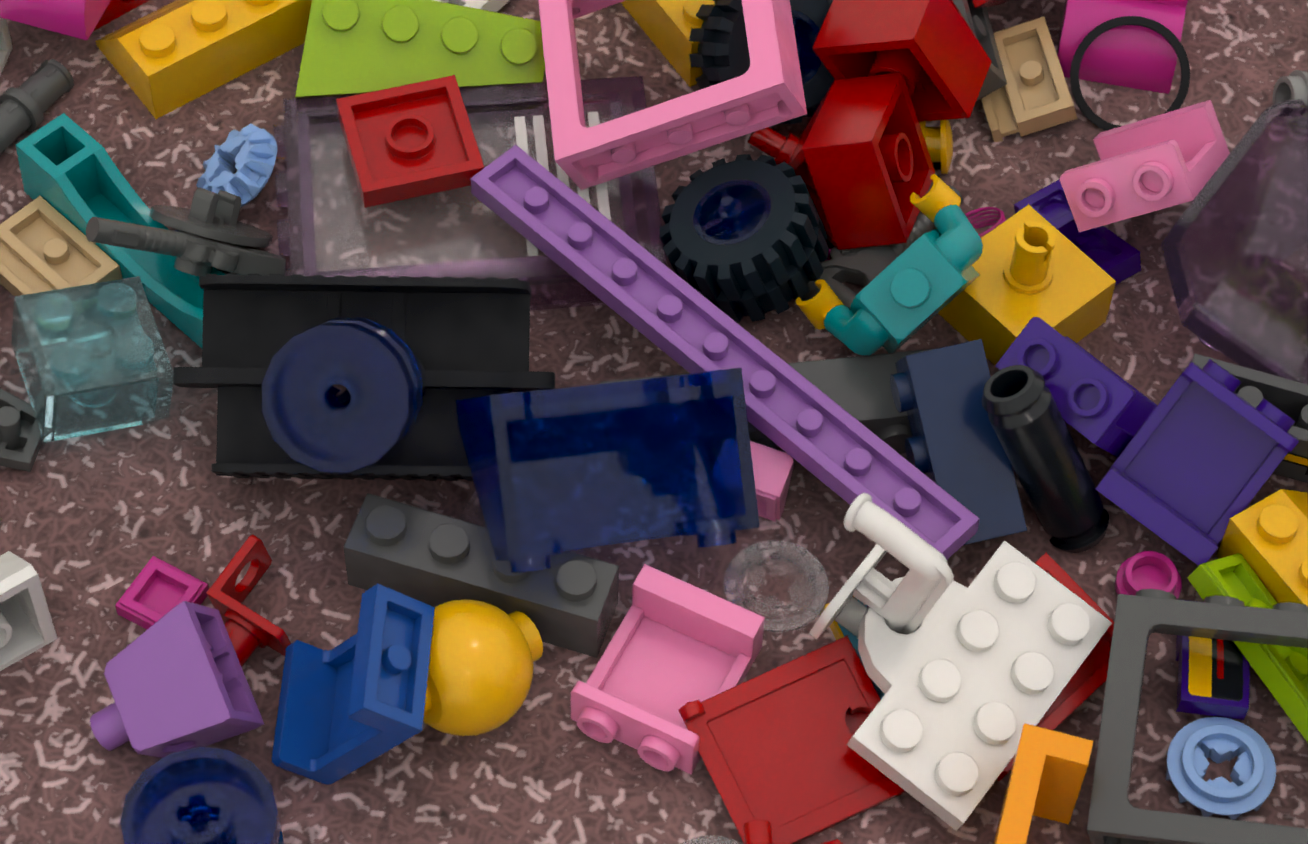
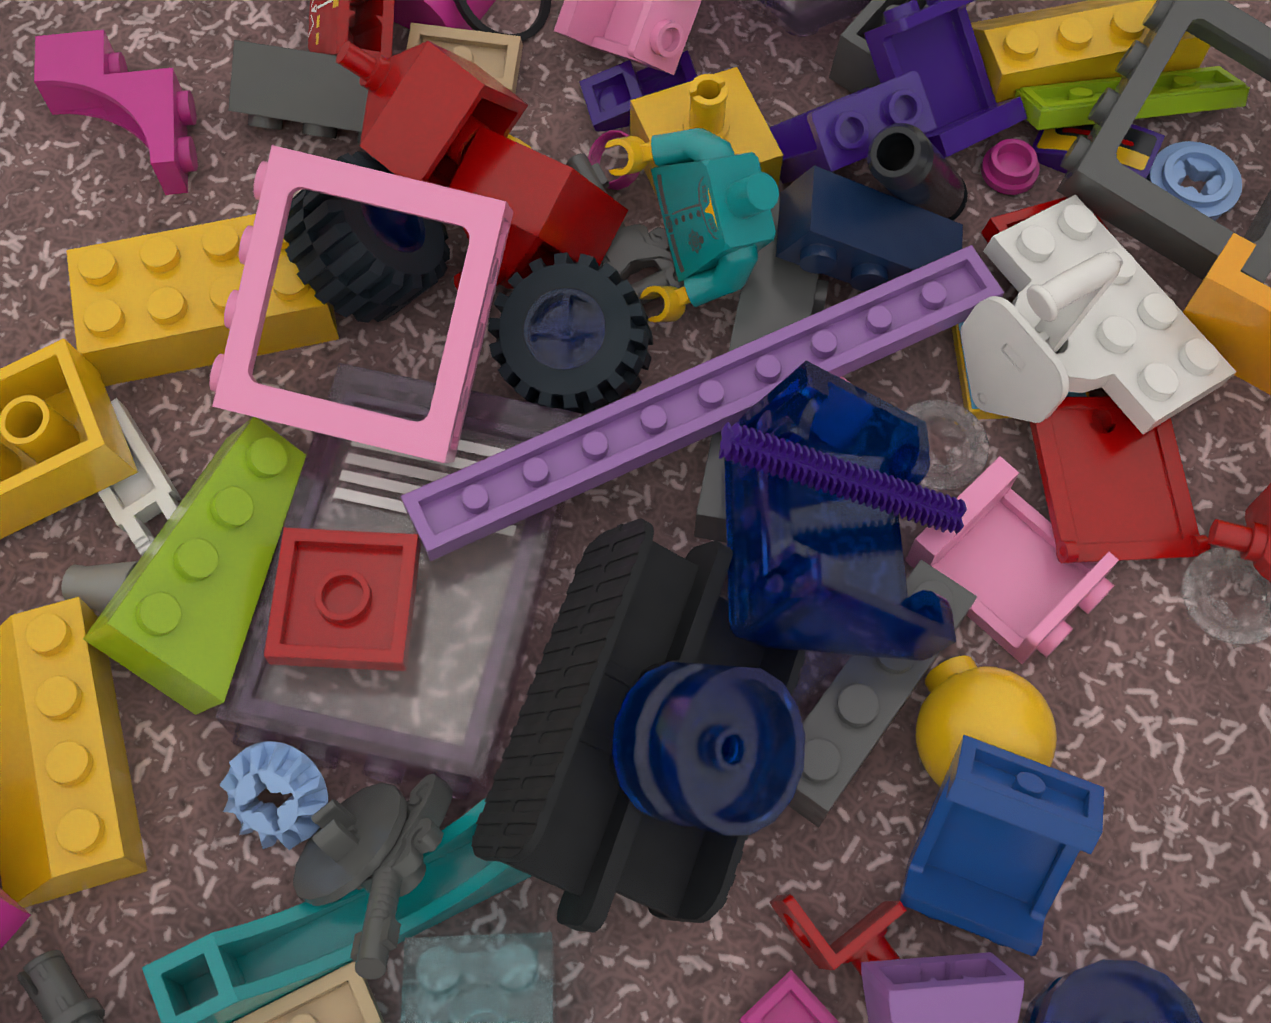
camera: 70 degrees left, 10 degrees up
(649, 452) = (841, 478): none -> dark purple axle

